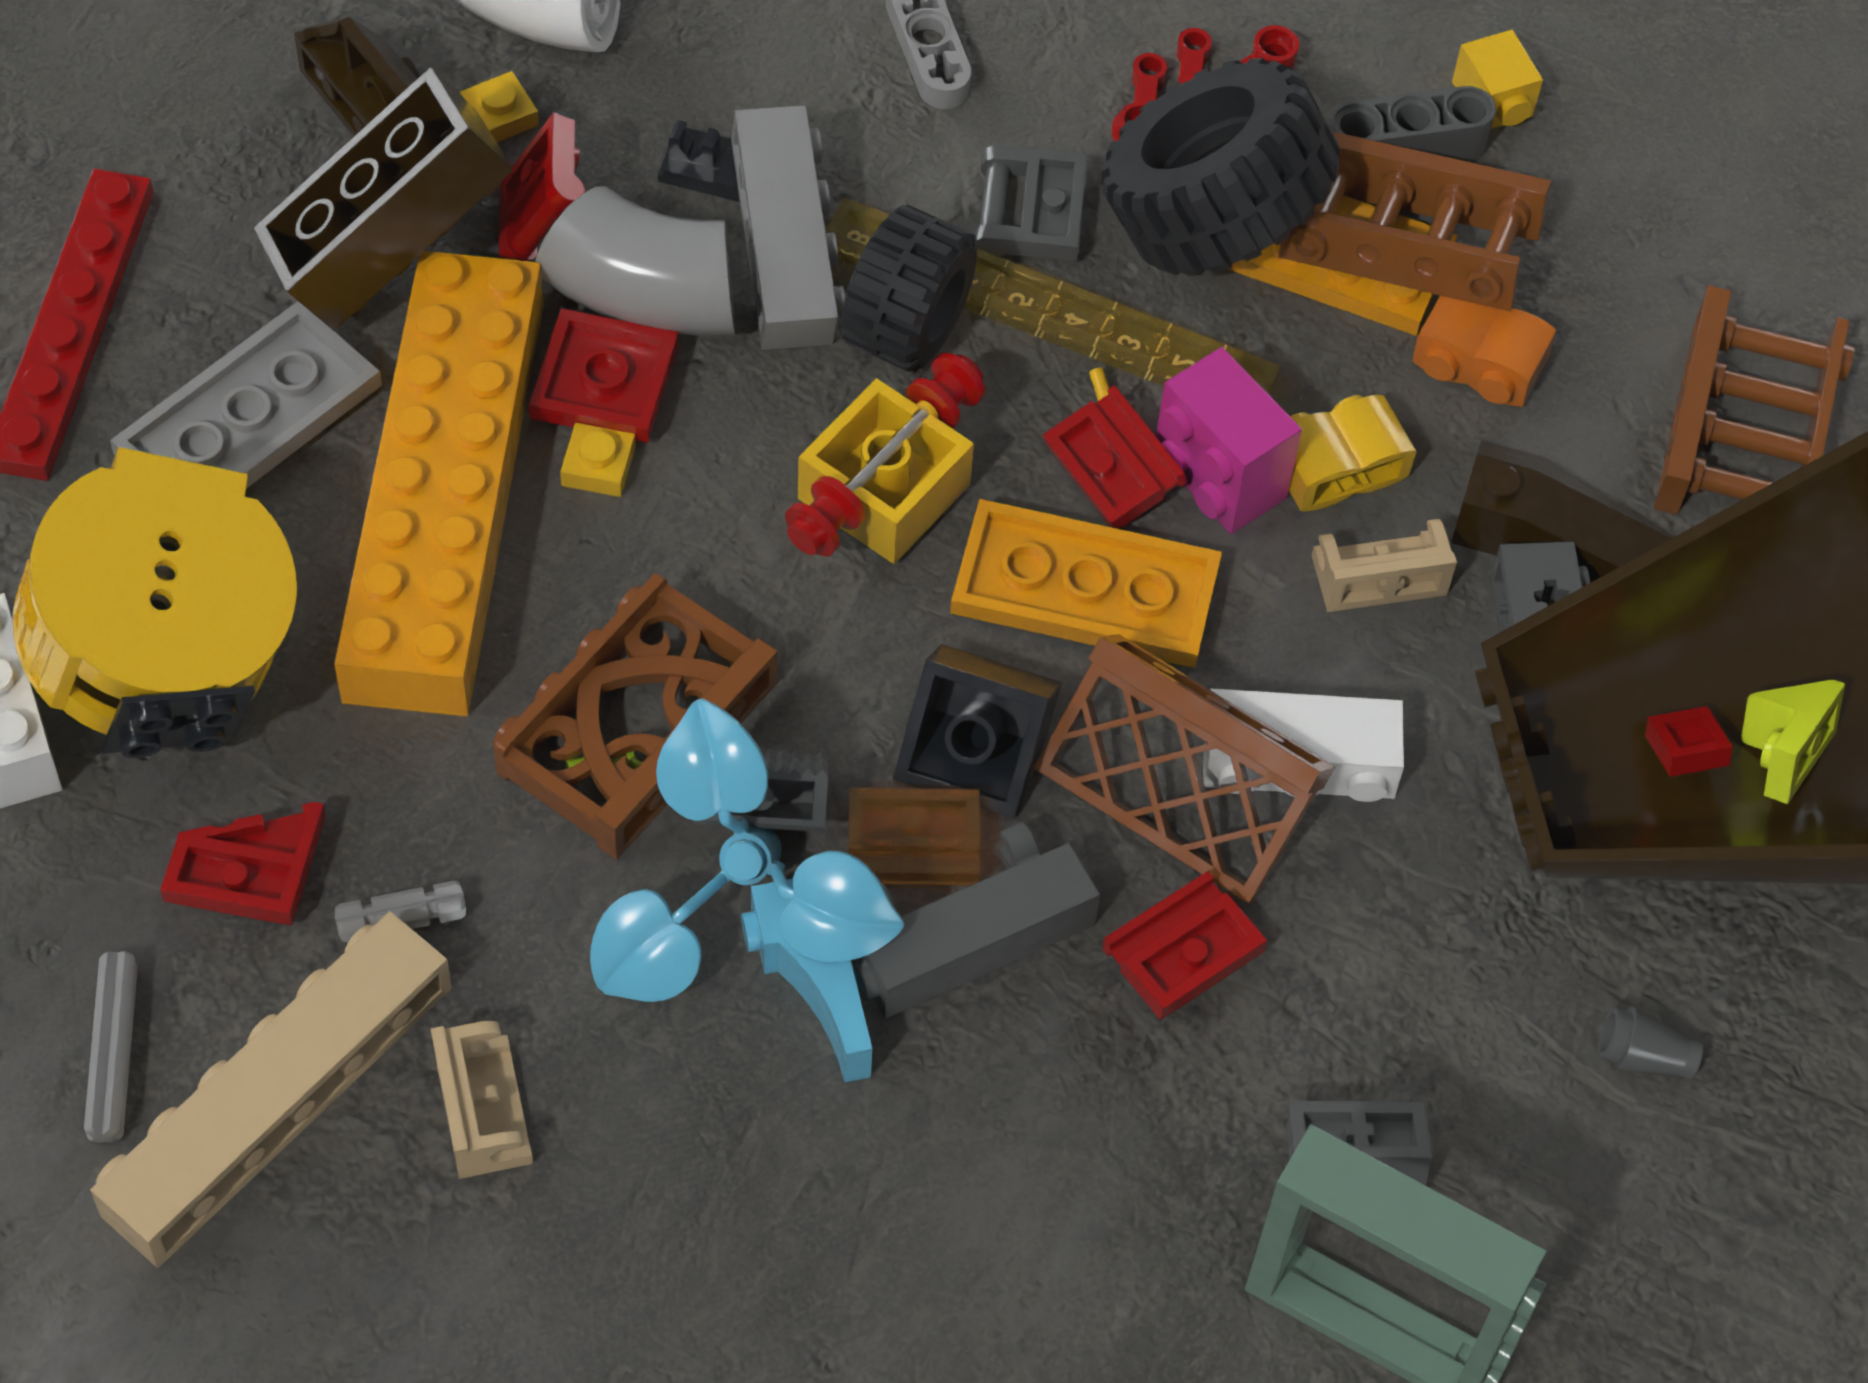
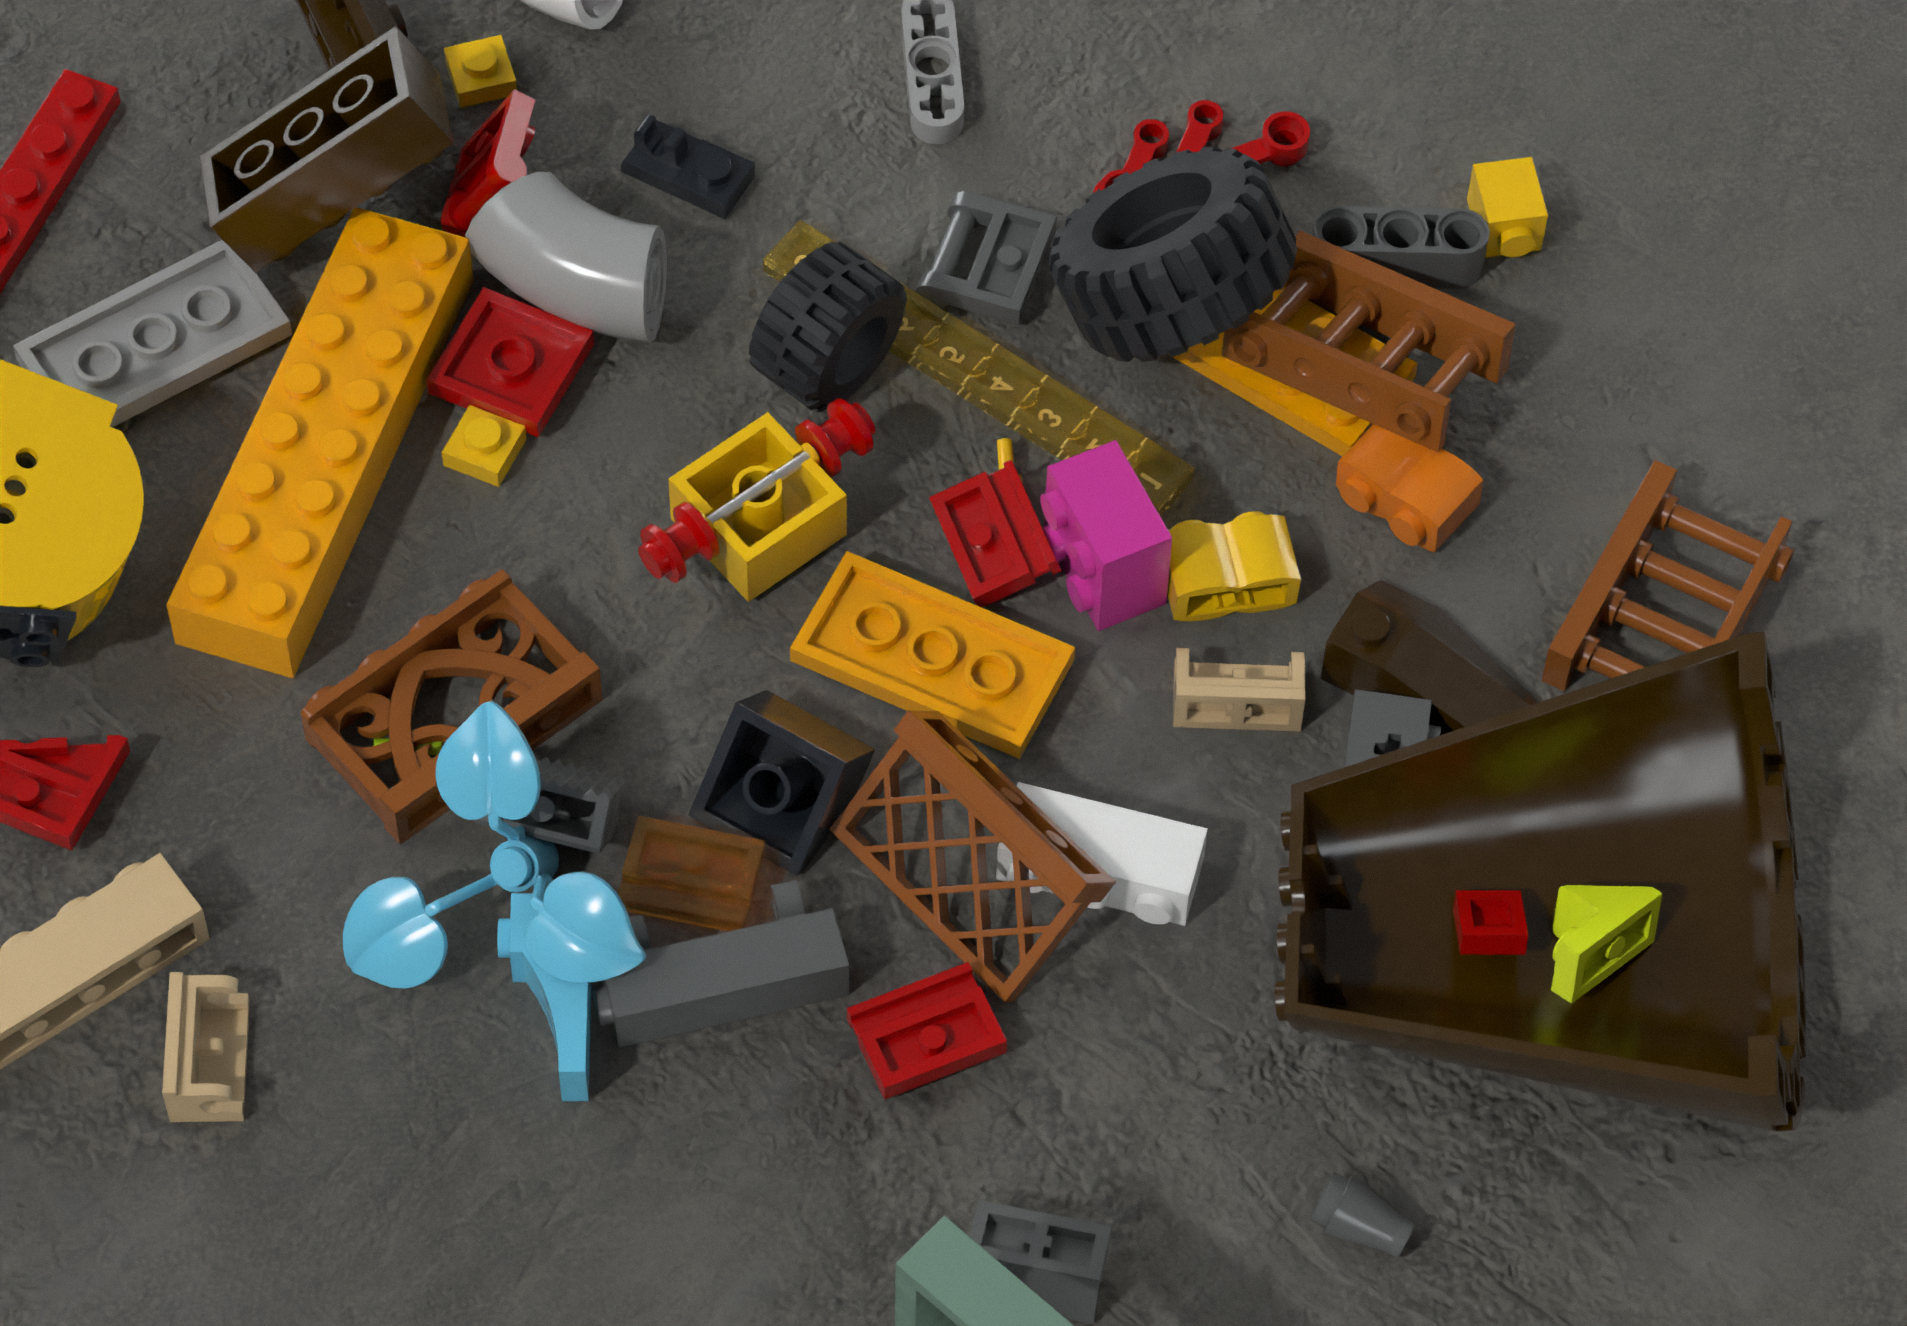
camera: 15 degrees right, 0 degrees up
(409, 906) = (184, 854): light grey axle -> none
(785, 227) = (725, 240): light grey brick -> none

